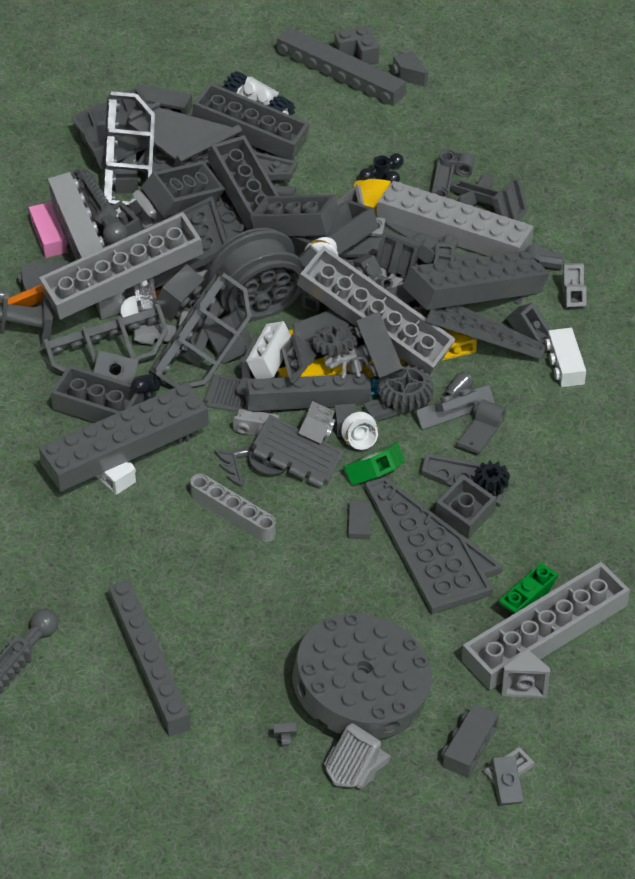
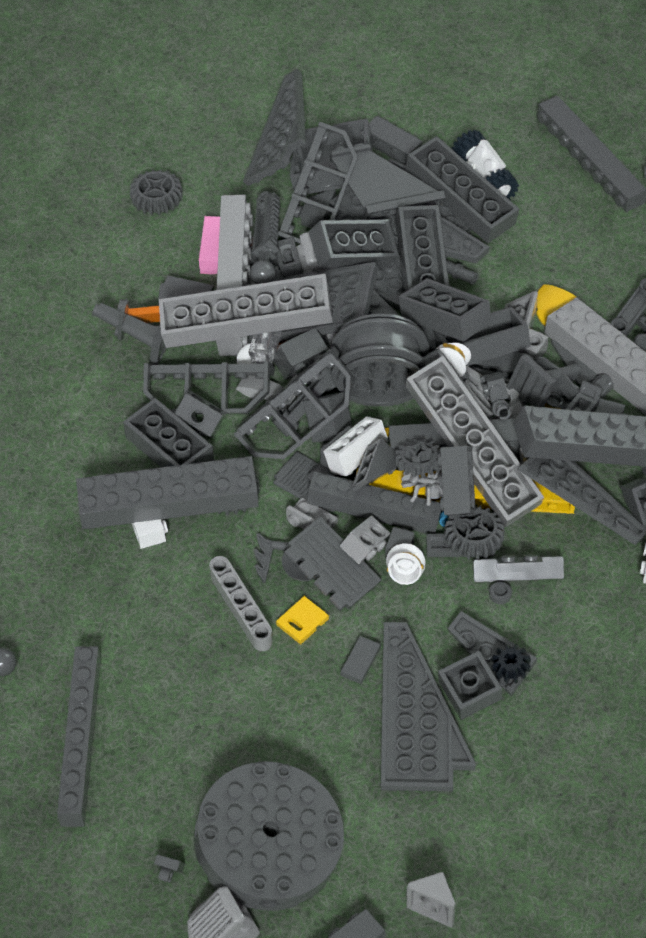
camera: 25 degrees right, 5 degrees up
(60, 119) = (282, 131): none -> dark grey wing
(146, 384) = (219, 442): black piece -> none
(294, 501) = (305, 616): none -> yellow piece
(358, 43) = (620, 132): dark grey brick -> none
(374, 464) = (404, 605): green slope -> none
(381, 168) = (576, 280): black piece -> none
(448, 430) = (500, 592): none -> dark grey tile
(460, 382) = (535, 545): dark grey cone -> none
(486, 423) = (543, 597): dark grey door -> none
(529, 589) = (487, 804): green slope -> none
(546, 623) = (488, 846): light grey brick -> none

